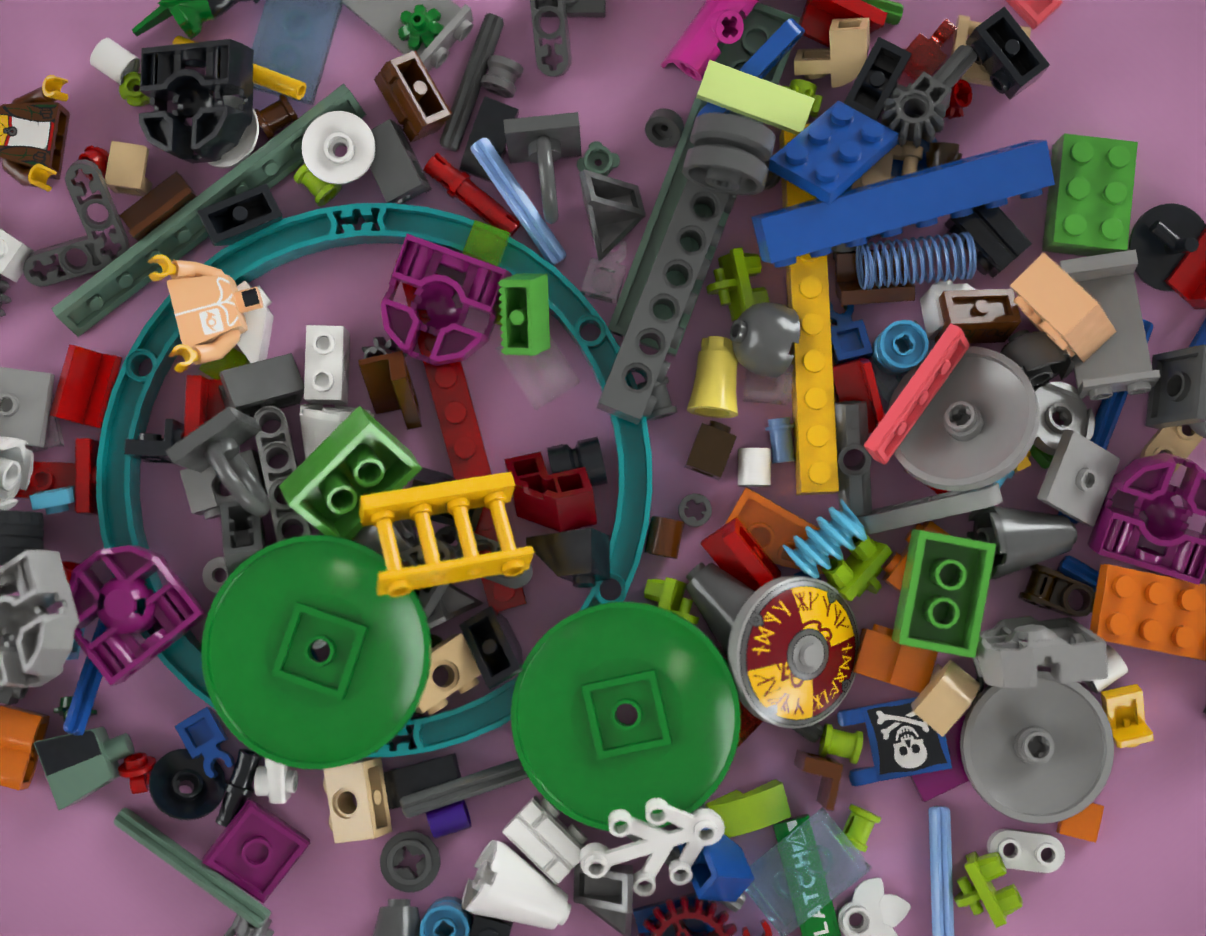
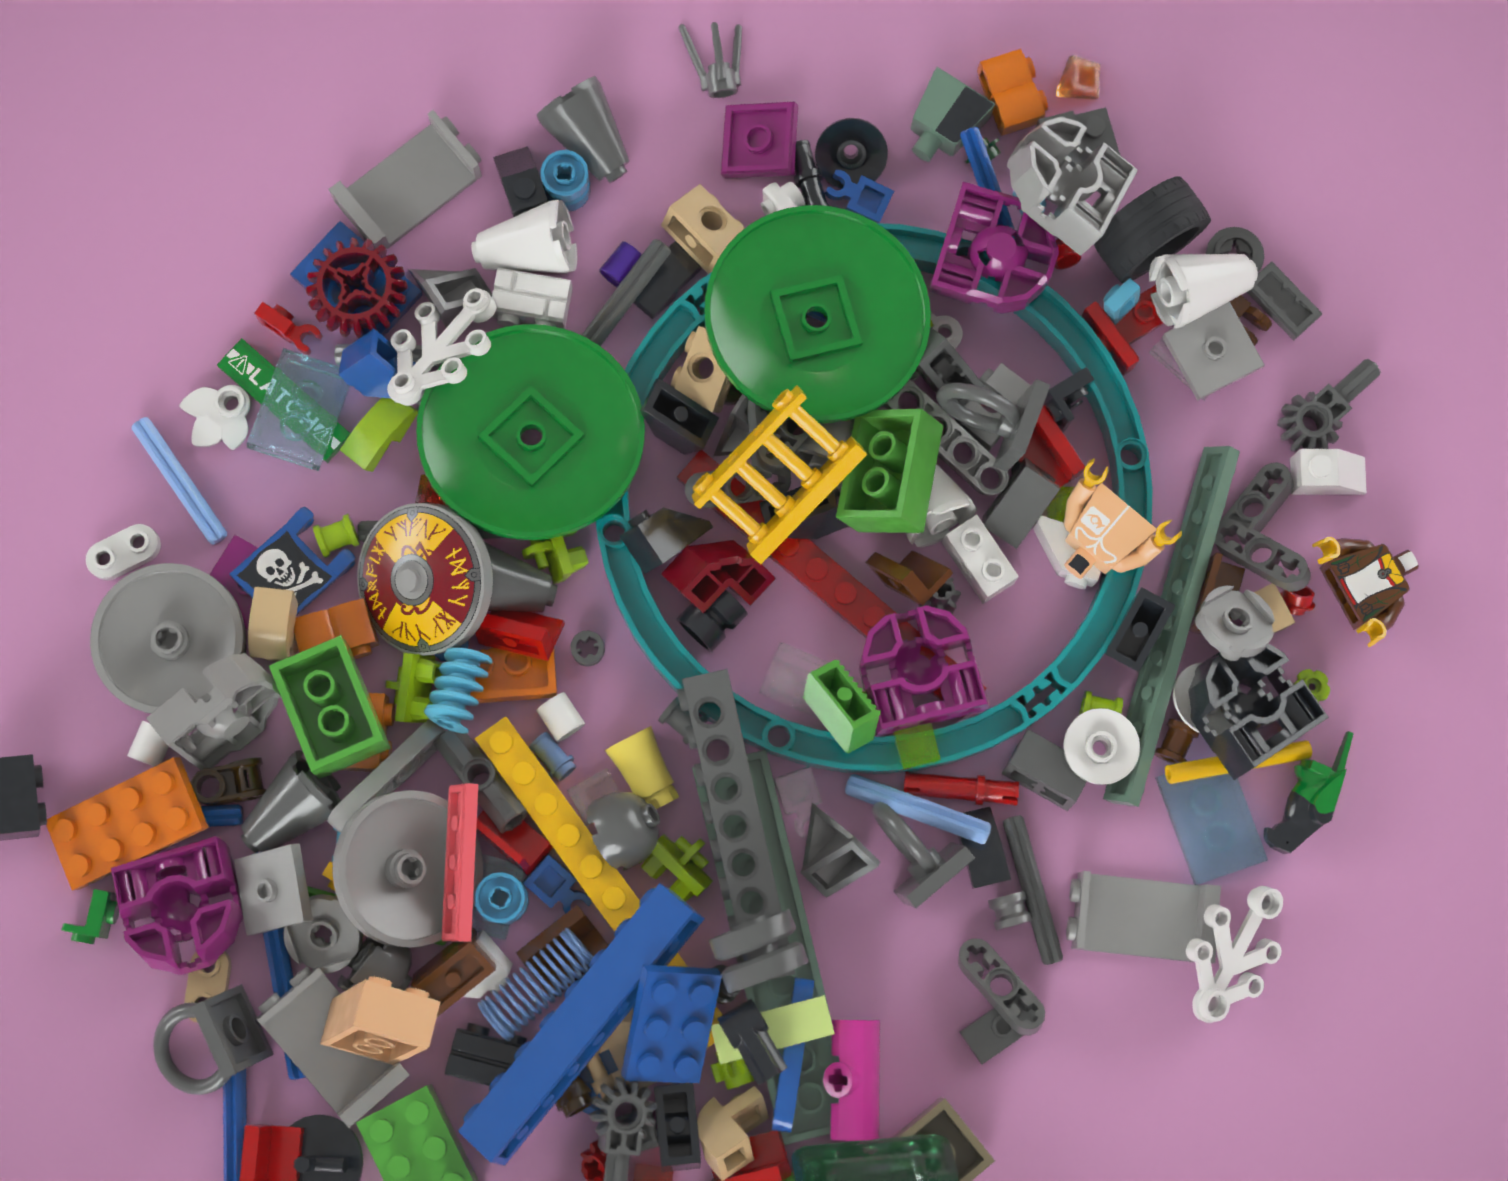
camera: 140 degrees right, 5 degrees down
(85, 386) = (1165, 408): red panel -> none
(113, 60) = (1348, 696): white beam -> none
(138, 770) = (898, 139): red plate -> none
(176, 166) = (1227, 637): none -> light grey plate
(192, 867) = (801, 93): sand green axle -> none
(404, 878) = (626, 197): dark grey gear -> none
(412, 96) = (1071, 837): reddish brown brick -> none
(420, 26) = (1103, 907): green plant -> none
(598, 152) = (881, 901): sand green plate -> none
(664, 127) = (837, 962): dark grey tile -> none
(664, 537) = (598, 607): reddish brown beam -> none
(711, 449) = (607, 706): dark brown brick -> none
(778, 101) = (749, 1035): none -> black piece
(831, 774) = (340, 500): reddish brown panel -> none
(859, 826) = (277, 478): lime bush -> none
(982, 871) = (140, 492): lime hips -> none
(1084, 824) = (85, 604): orange tile -> none
(1126, 716) = (105, 716): yellow bracket -> none

